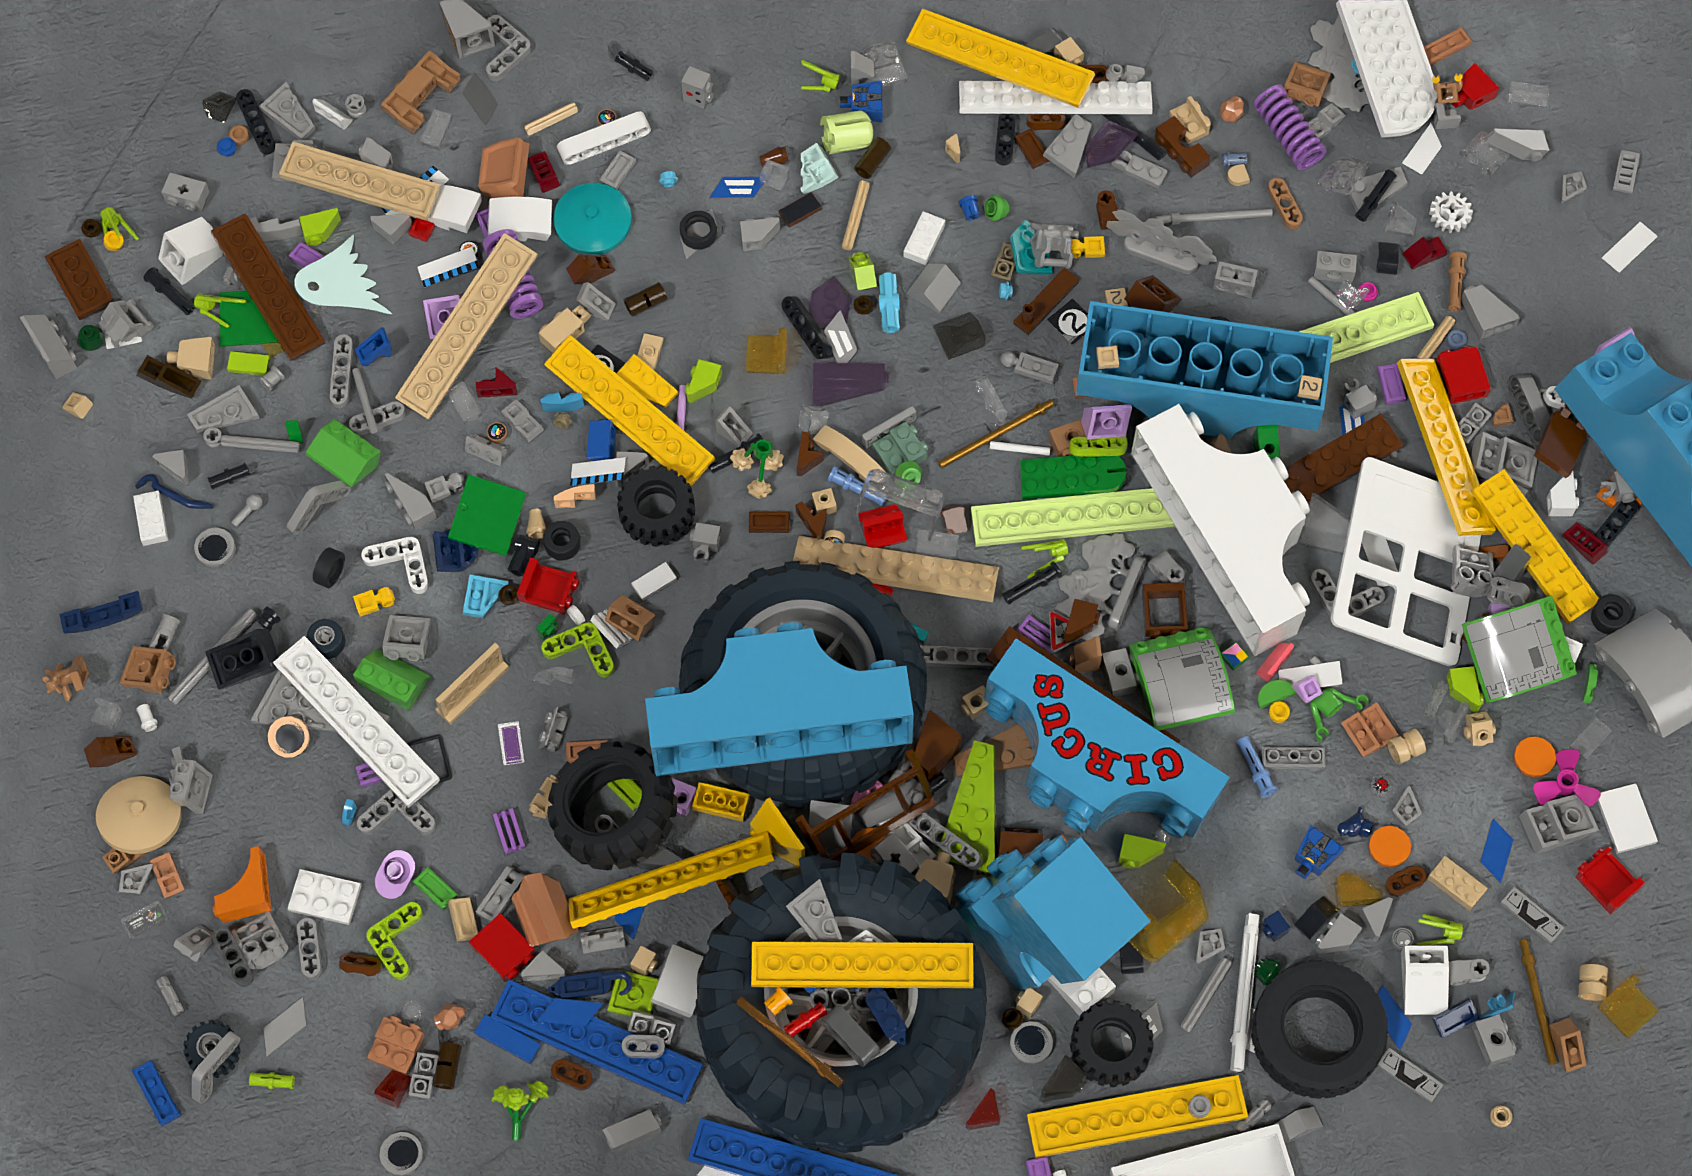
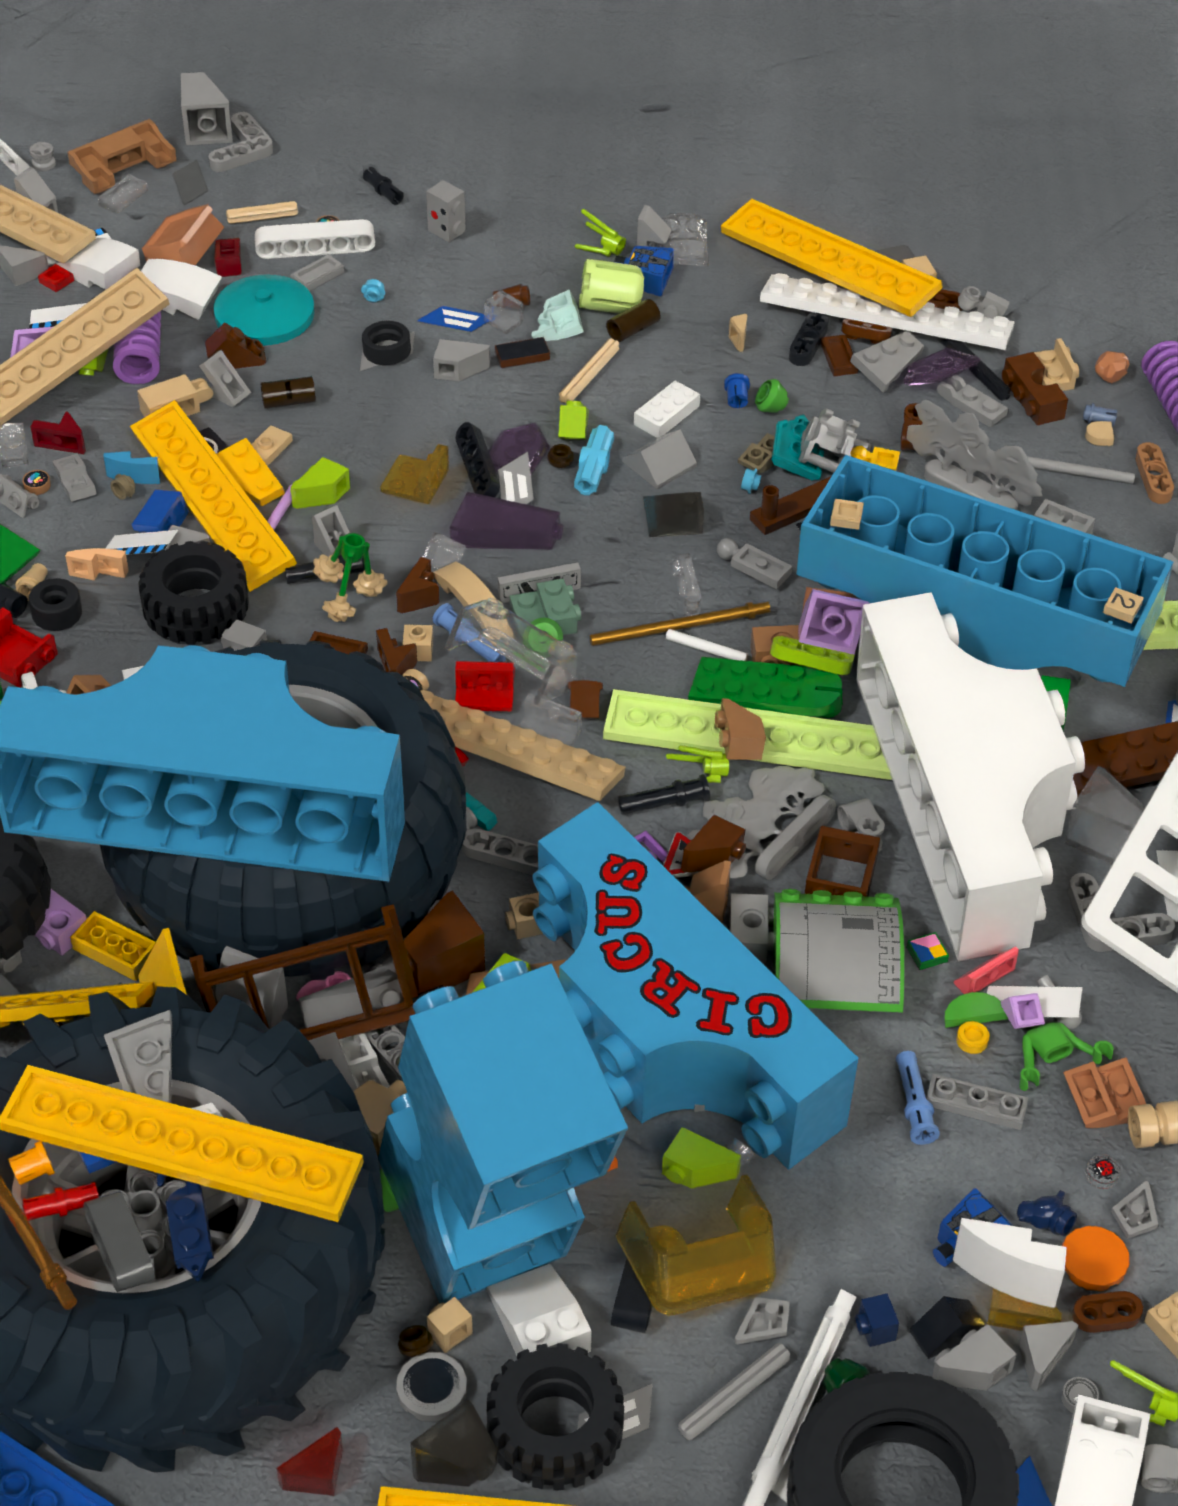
camera: 15 degrees right, 20 degrees down
(1069, 523) = (740, 732): none -> medium nougat slope
(1348, 874) = (1010, 1260): none -> white slope

